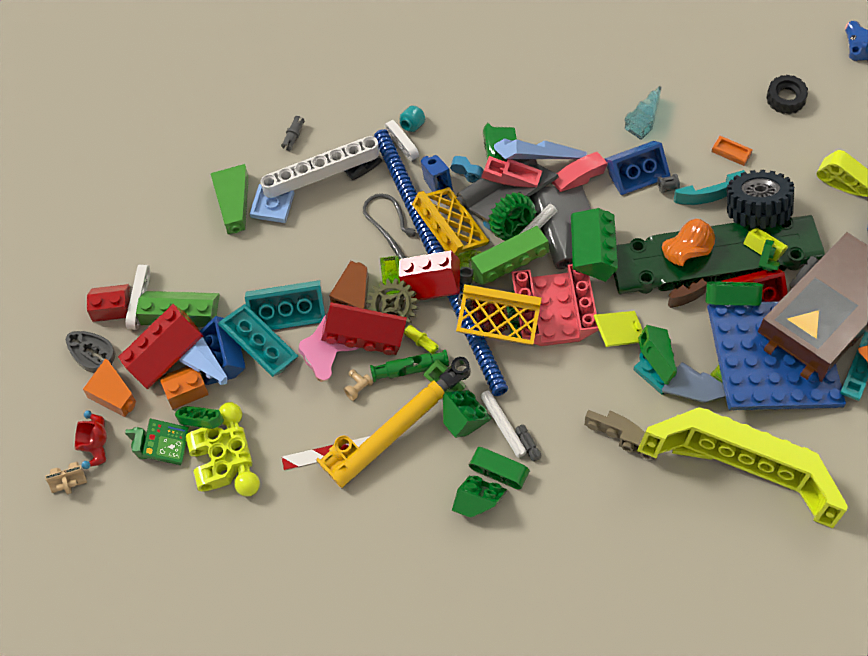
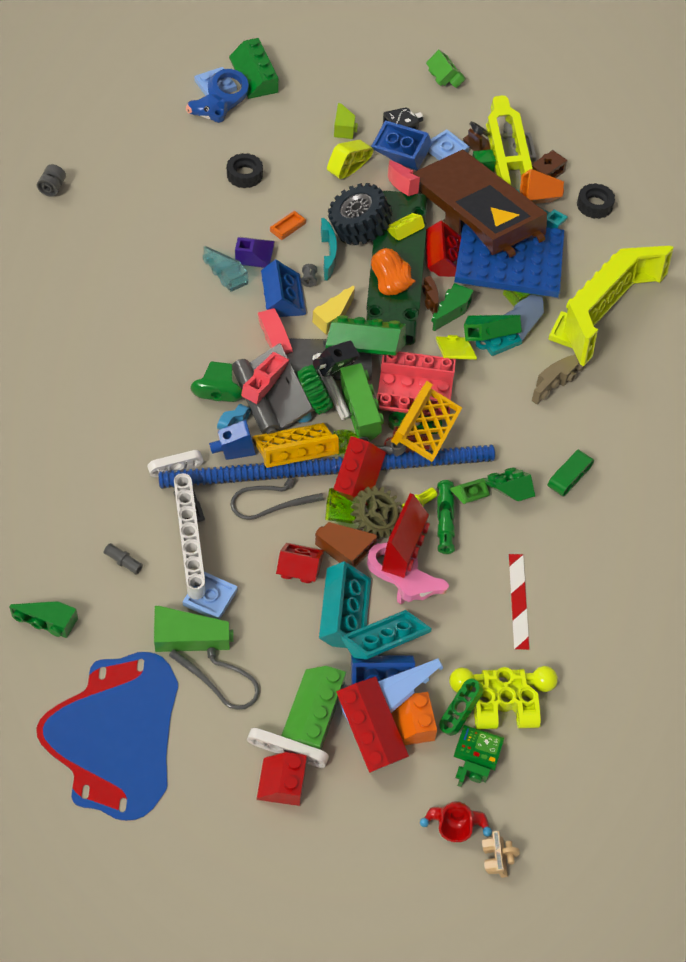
camera: 85 degrees left, 5 degrees down
(89, 340) = (351, 817): dark grey piece -> none
(110, 390) = (400, 792): orange slope -> none
(134, 178) = (116, 735): none -> blue piece
(202, 210) = (211, 655): none -> dark grey piece
(222, 104) = (50, 616): none -> green slope
(323, 258) = (299, 562): none -> red slope
(346, 464) = (541, 589): yellow piece -> none
(362, 382) = (451, 559): tan piece -> none
(412, 118) = (152, 447): teal head -> none
(477, 496) = (598, 494): green slope -> none
(503, 424) = (524, 460): white axle -> none
(528, 442) = (550, 446): dark grey axle -> none
(544, 150) = (248, 356): light blue wedge -> none
(548, 222) = (336, 357): none -> black torso
(632, 215) = (334, 307): none -> light yellow slope
(679, 128) = (254, 251): none -> dark purple slope
(682, 317) = (455, 305): none -> green slope
(734, 293) = (453, 256): green beam -> none
(768, 252) = (422, 224): green bracket -> none
(804, 270) = (435, 211): dark grey axle -> none
(836, 227) = (403, 178): none -> coral slope

